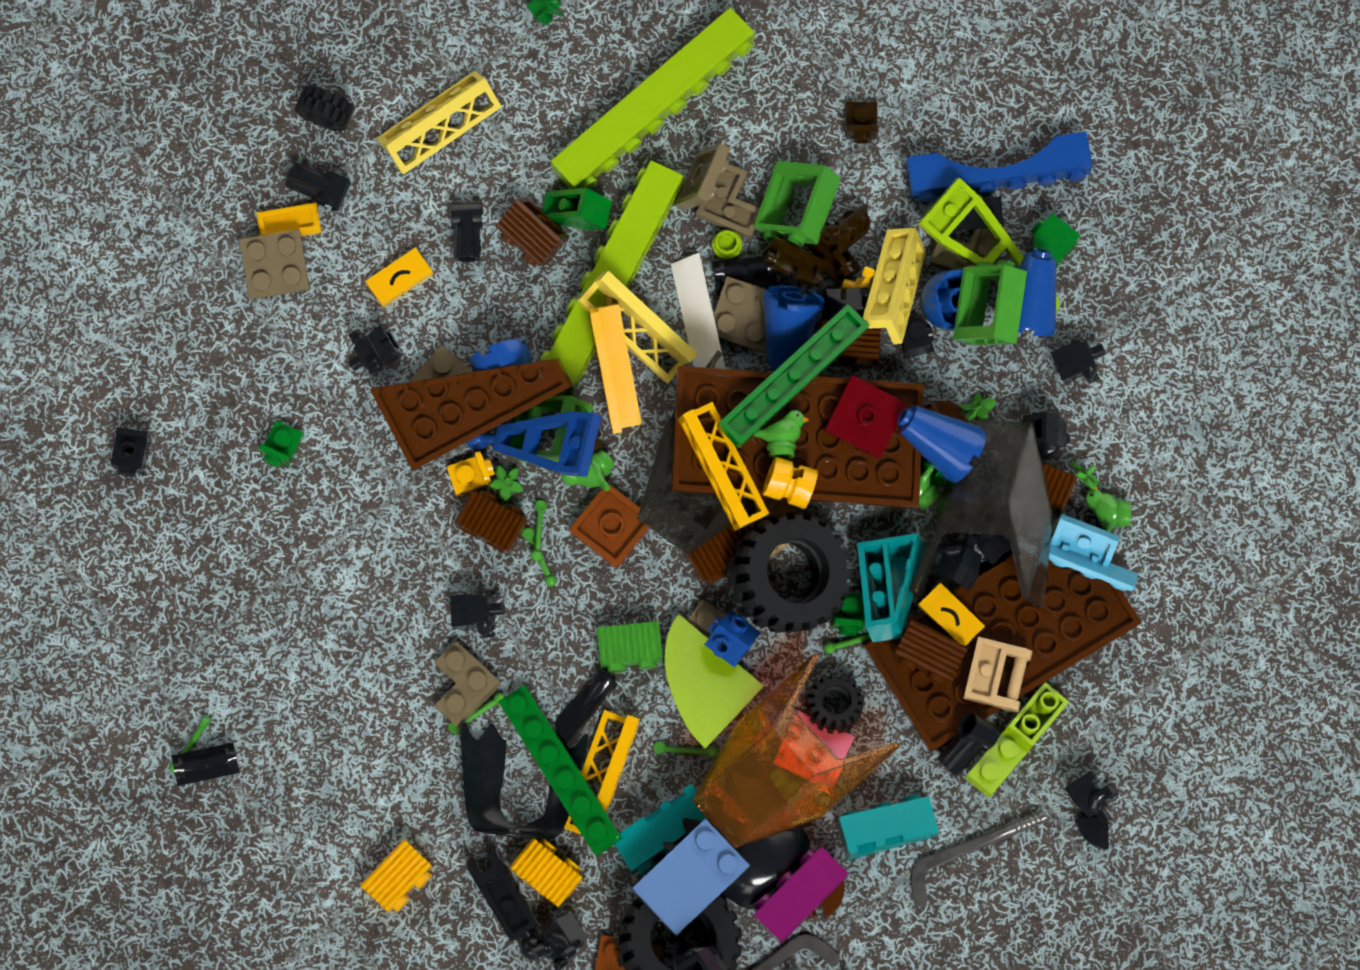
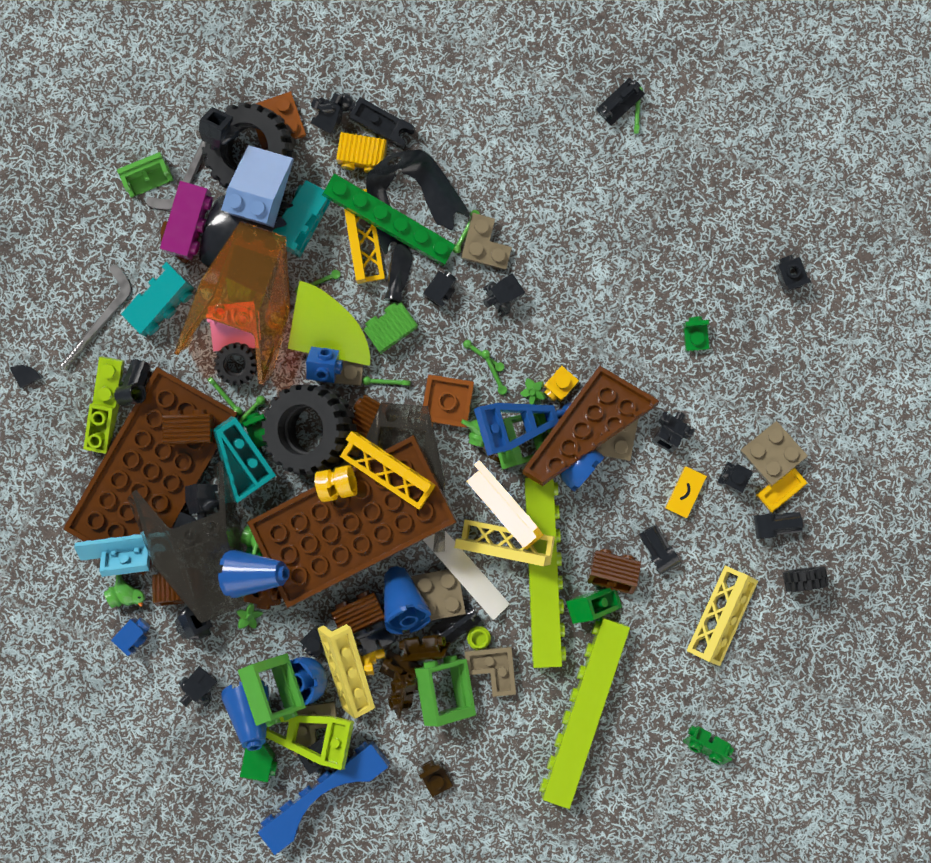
camera: 155 degrees right, 10 degrees up
(334, 261) = (735, 477): none -> black brick
(397, 877) = (455, 97): yellow brick -> none
(491, 522) = (527, 358): reddish brown brick -> none
(545, 658) = (440, 288): none -> black brick
(691, 602) = (367, 380): none -> bright green hinge
(701, 179) = (519, 674): dark tan plate -> none
(783, 435) = (359, 514): bright green animal -> none
(793, 376) = (374, 559): green plate -> none
(865, 417) = (312, 560): dark red plate -> none
(874, 698) = (223, 394): none -> bright green hinge
(951, 615) = (189, 462): yellow tile -> none
(987, 672) = (144, 436): tan plate -> none
(1086, 475) = (150, 608): bright green plant -> none
(1090, 797) = (37, 394): black piece -> none
(1124, 459) = (131, 635): none -> blue brick

